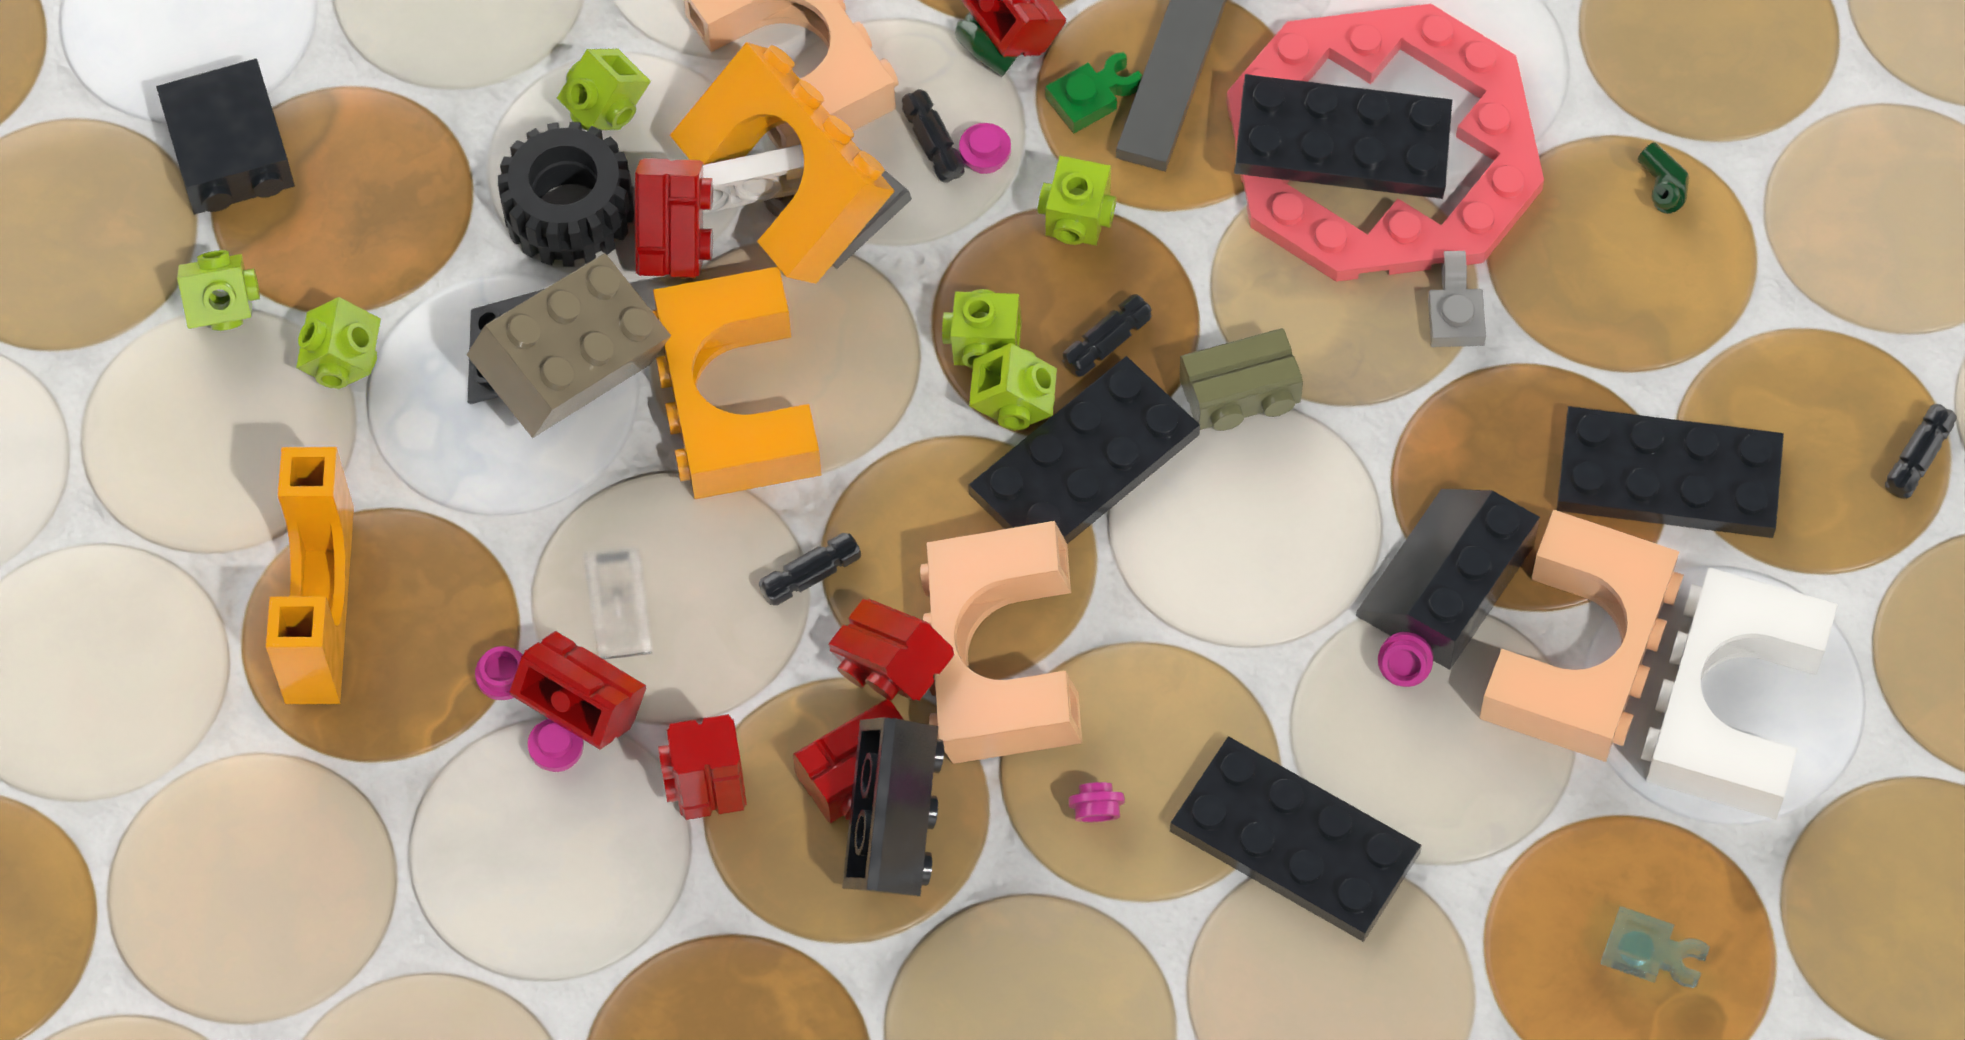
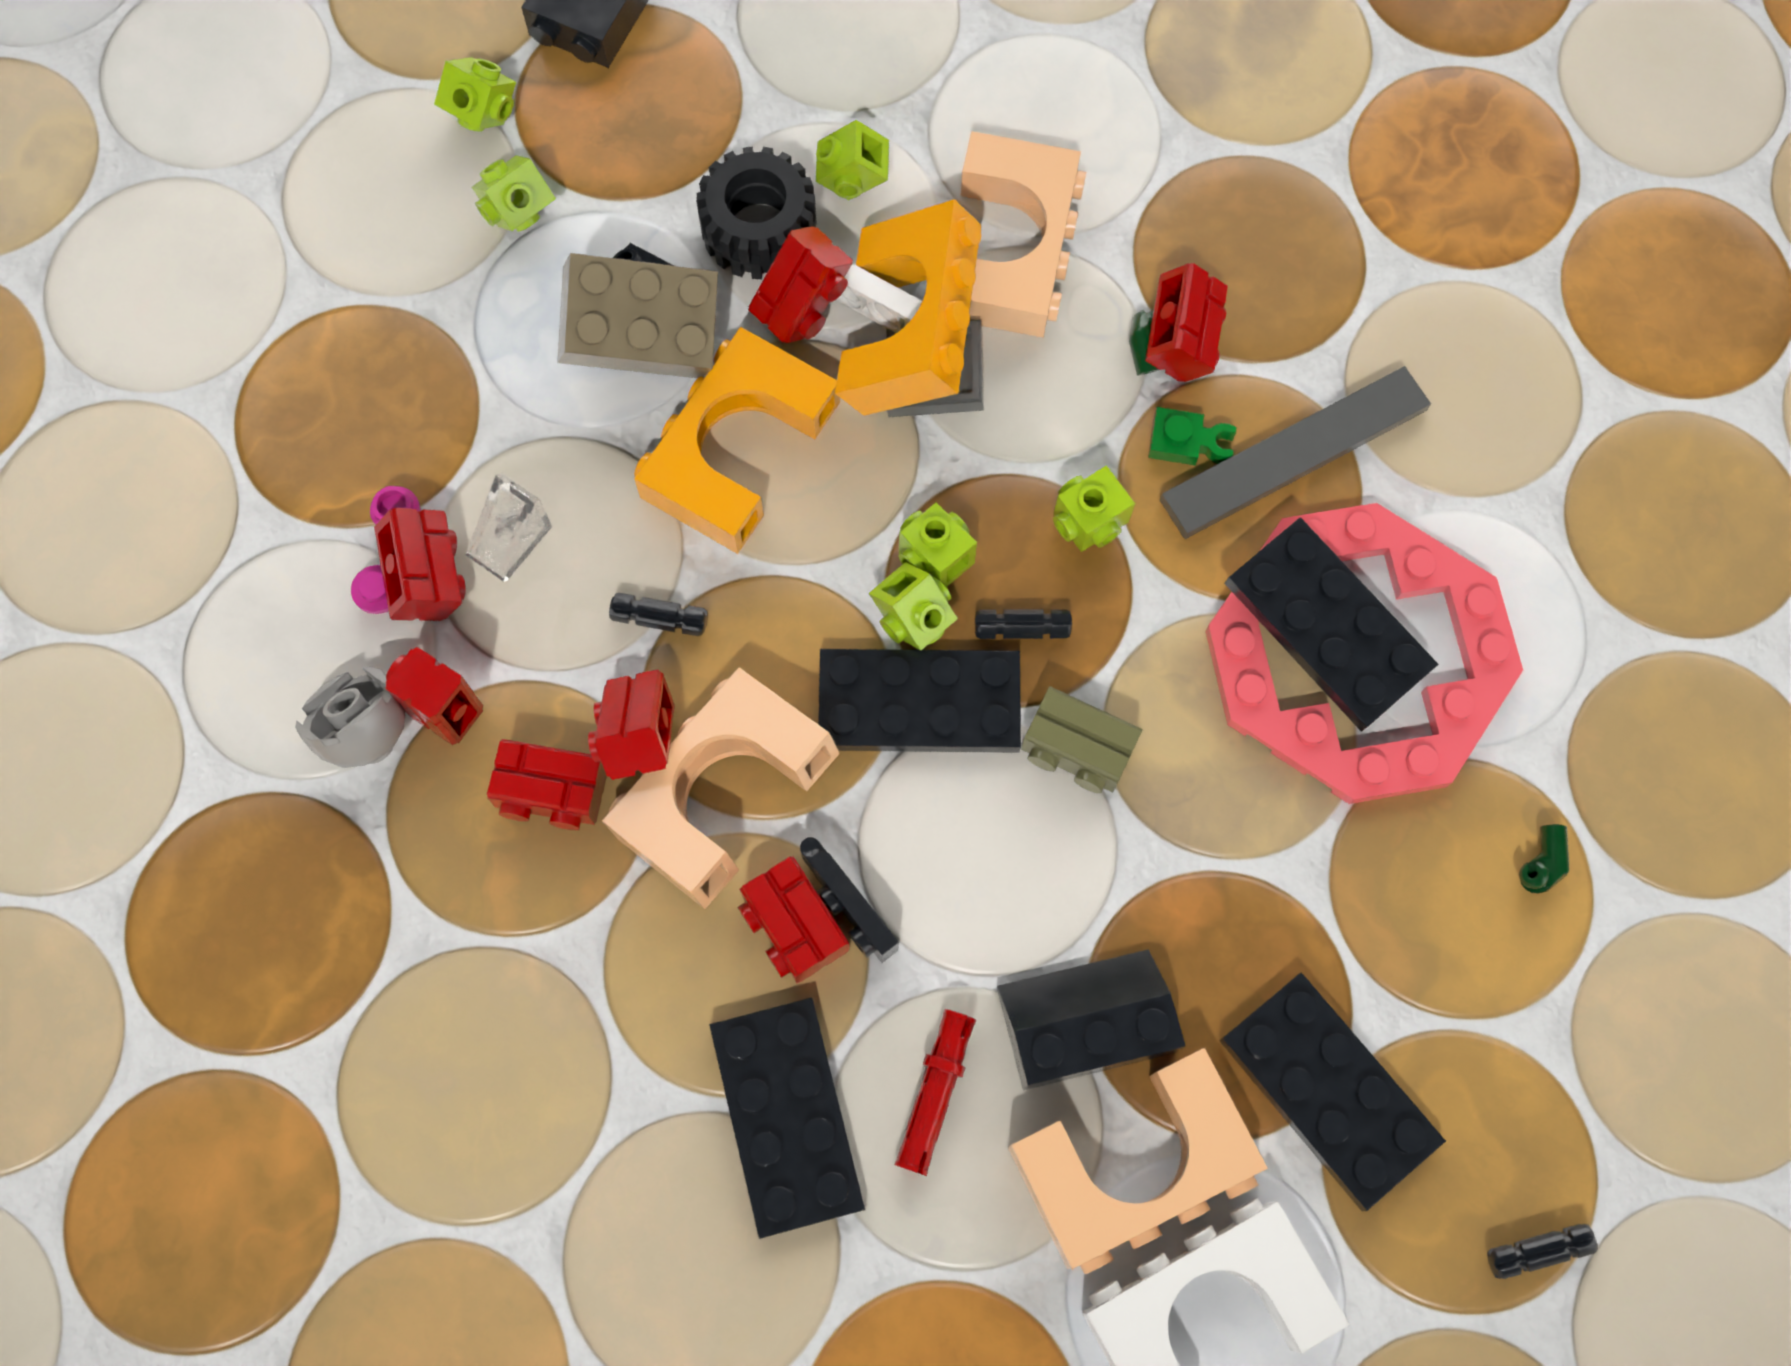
camera: 40 degrees right, 10 degrees up
(310, 625) = (370, 314): light orange arch -> none
(655, 840) = (352, 720): none -> light grey cylinder
(892, 807) = (514, 844): black slope -> none
(933, 136) = (1046, 377): black axle -> none
(985, 147) = (1072, 415): dark pink plate -> none
(1096, 802) = (673, 962): dark pink plate -> none
(1157, 693) = (793, 920): none -> red brick
(1183, 643) = (842, 896): none -> black hinge
(1378, 701) = (938, 1082): none -> red pin
(1405, 659) = (991, 1057): dark pink plate -> none
(1455, 311) = (1291, 824): light grey plate -> none

